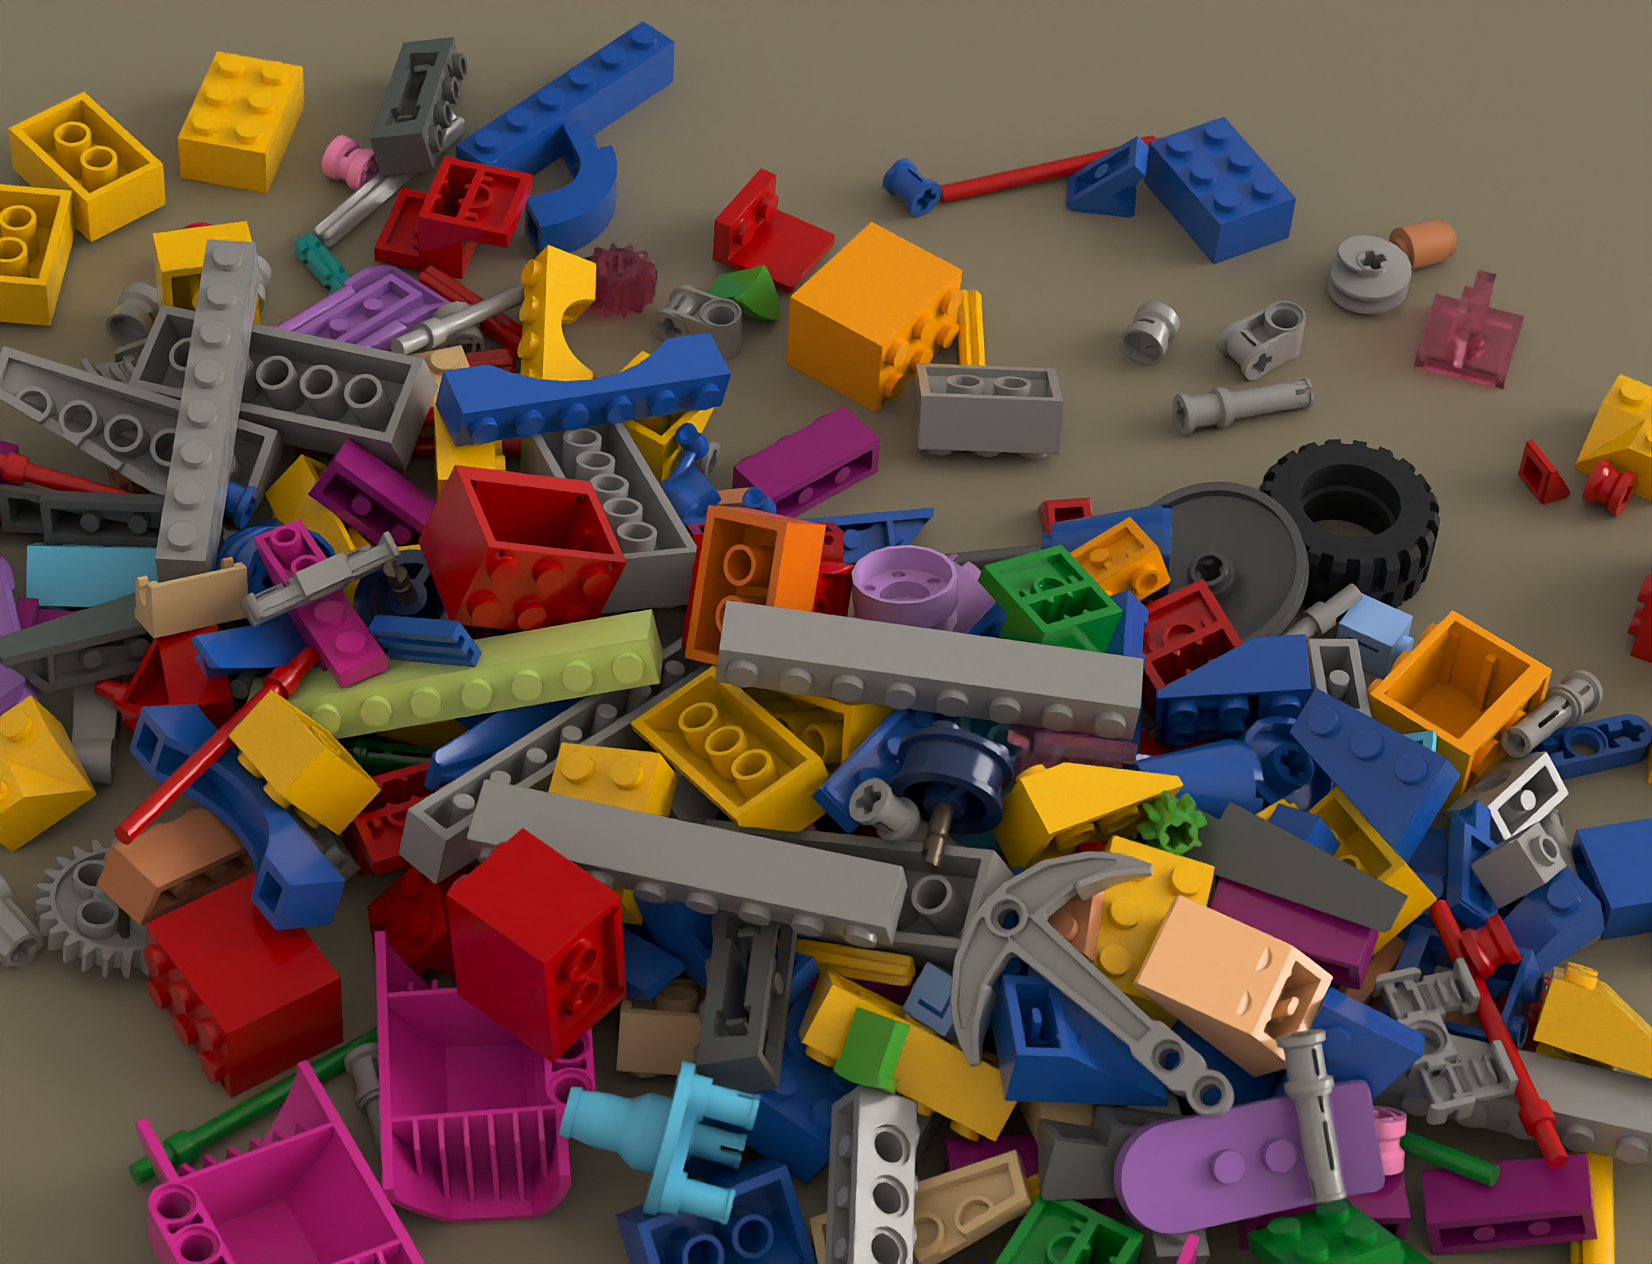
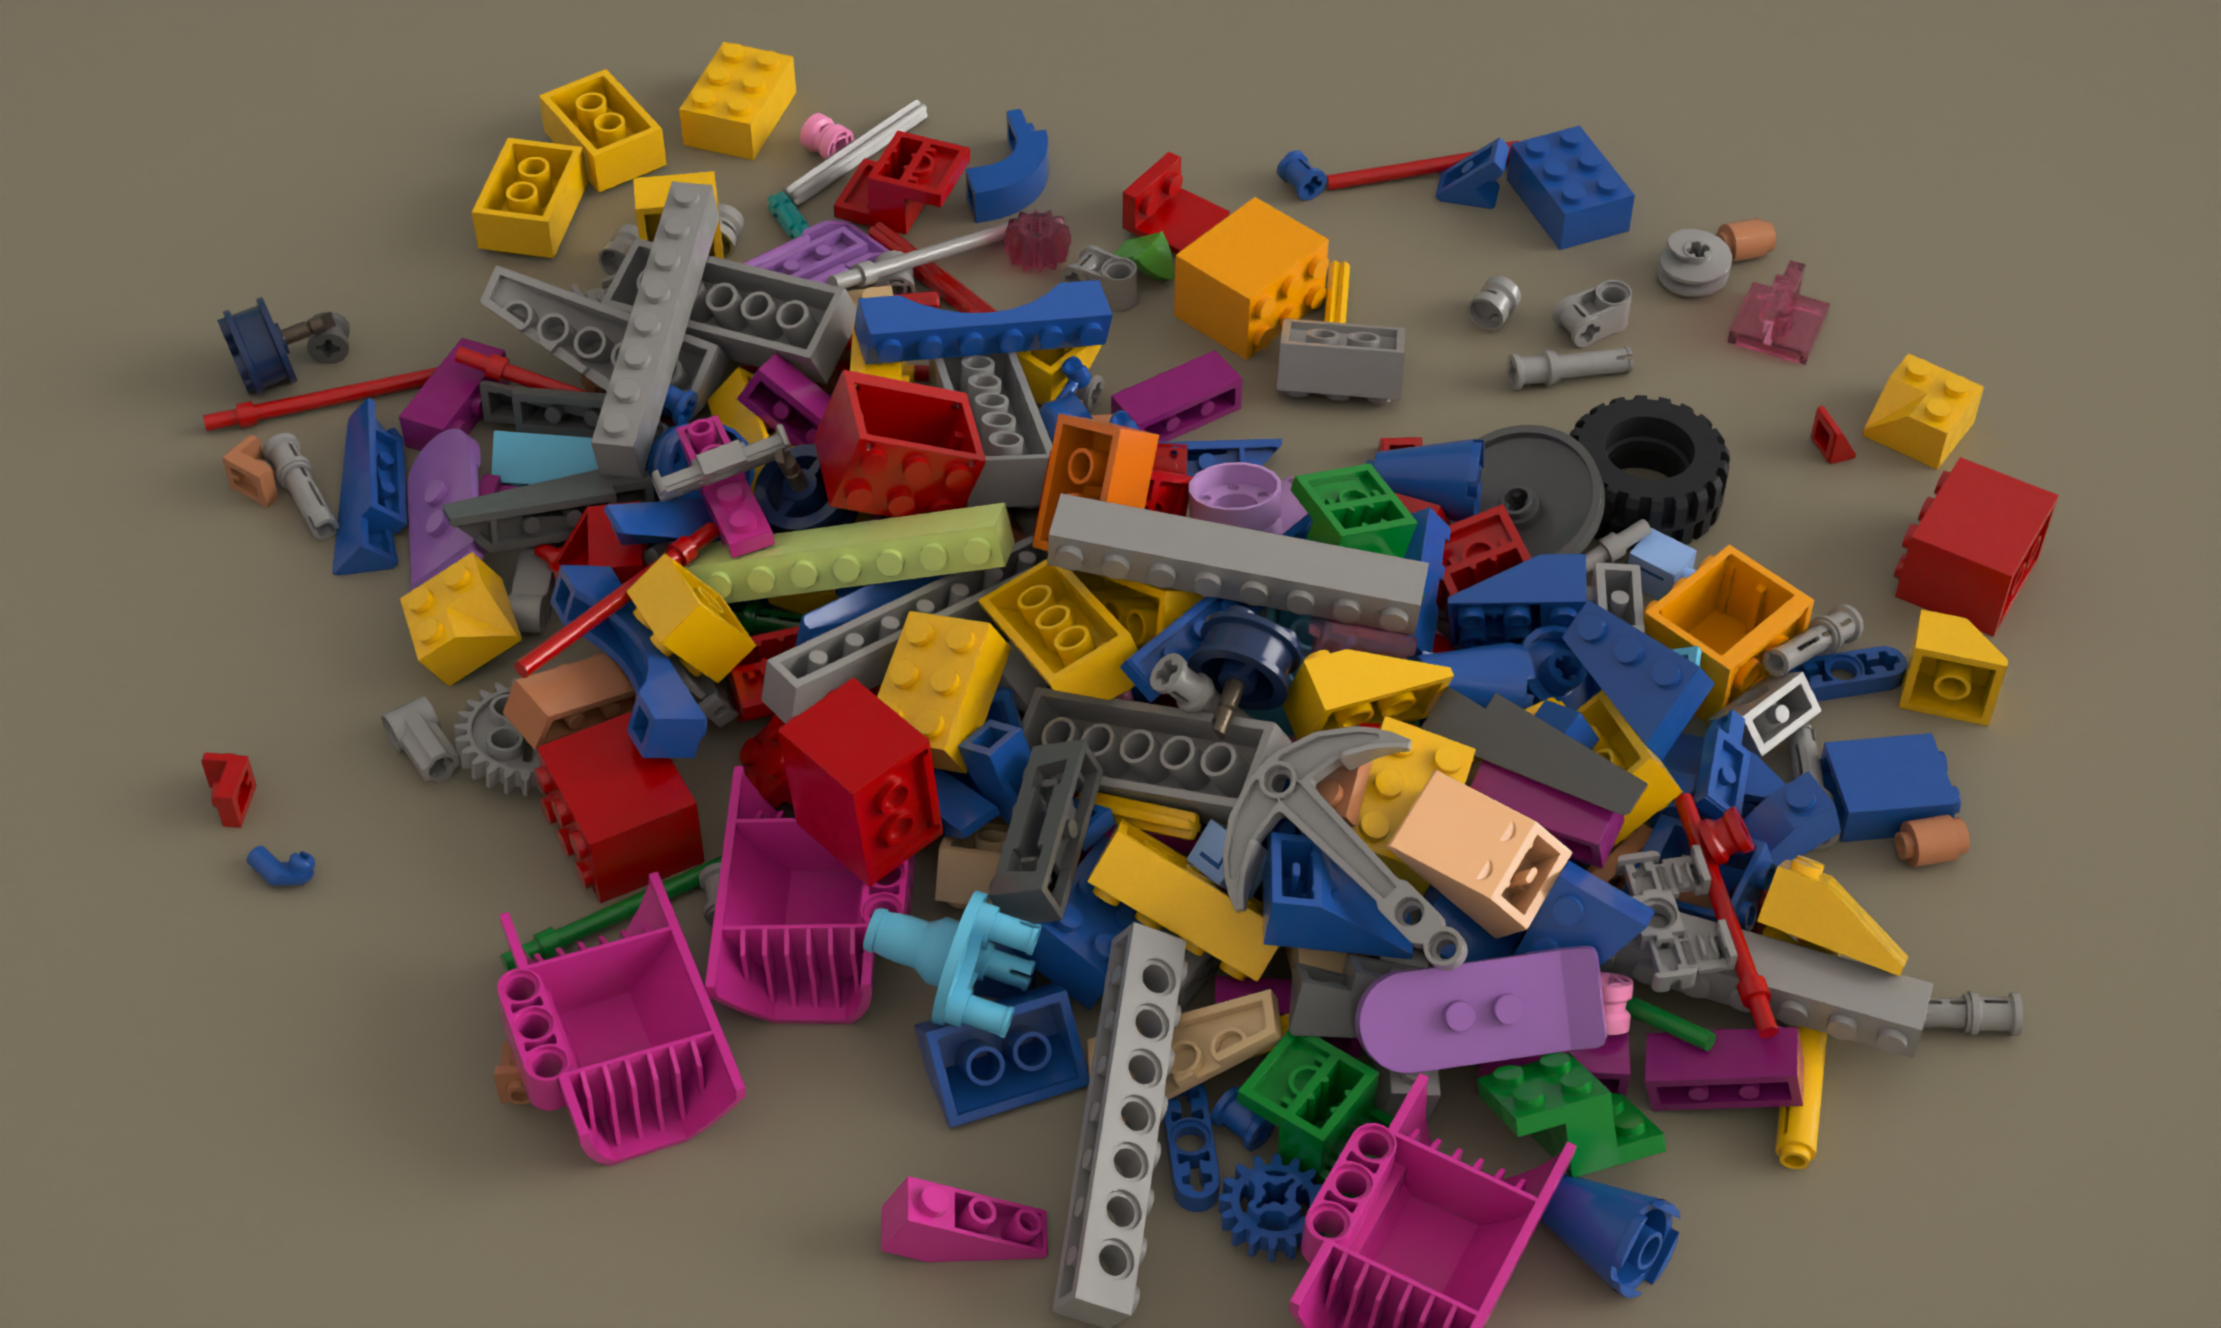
camera: 10 degrees right, 0 degrees up
(191, 600) = (617, 479): tan hinge -> none
(422, 102) = (886, 95): dark grey brick -> none
(425, 640) = (806, 520): blue tile -> none
(555, 294) = (978, 248): yellow arch -> none
(591, 92) = (1036, 87): blue brick -> none
(701, 864) = (1015, 720): light grey brick -> none
(872, 1051) = (1147, 892): bright green tile -> none
(1124, 561) = (1431, 483): light orange bracket -> none
(1172, 824) = (1441, 698): bright green gear -> none
(1310, 1090) = (1539, 949): light grey pin -> none
(1518, 865) = (1764, 768): light grey brick -> none
(1610, 487) = (1891, 450): red wheel -> none

